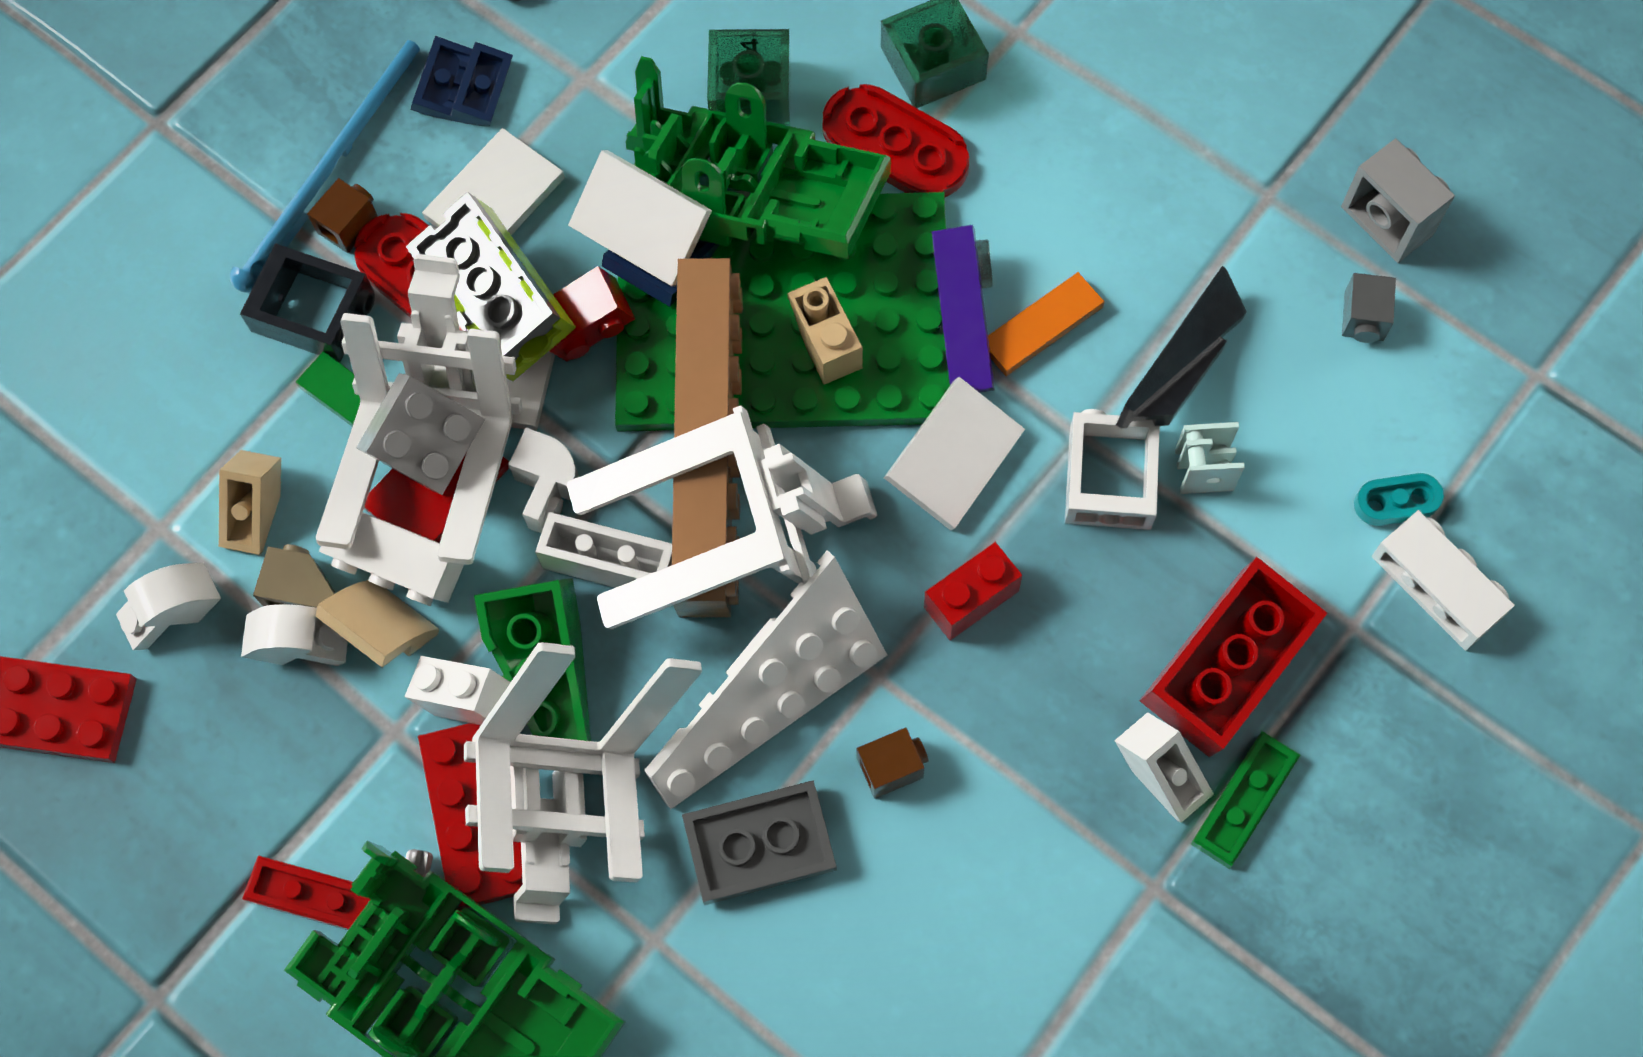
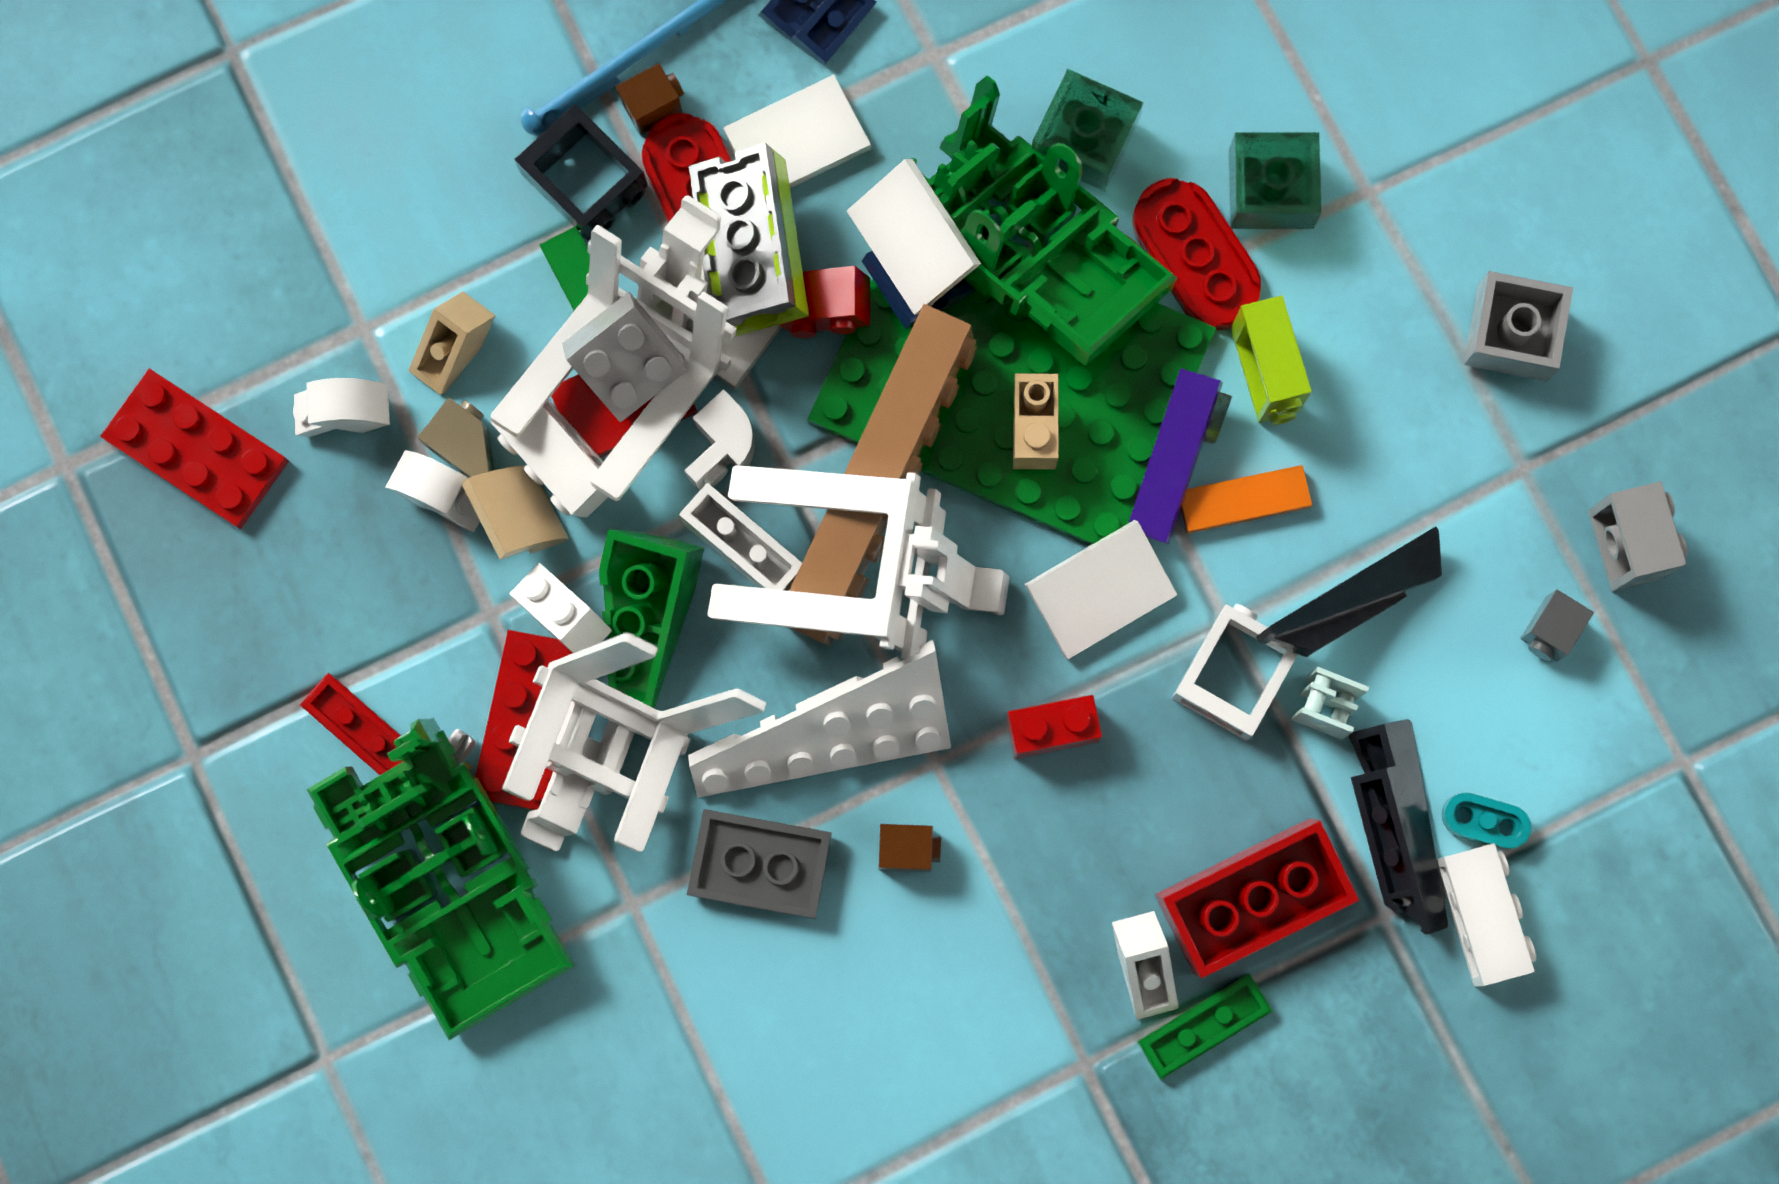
camera: 25 degrees right, 10 degrees up
(1006, 192) = (1270, 360): none -> lime window
(1203, 77) = (1518, 326): none -> light grey brick
(1323, 537) = (1398, 823): none -> black wedge

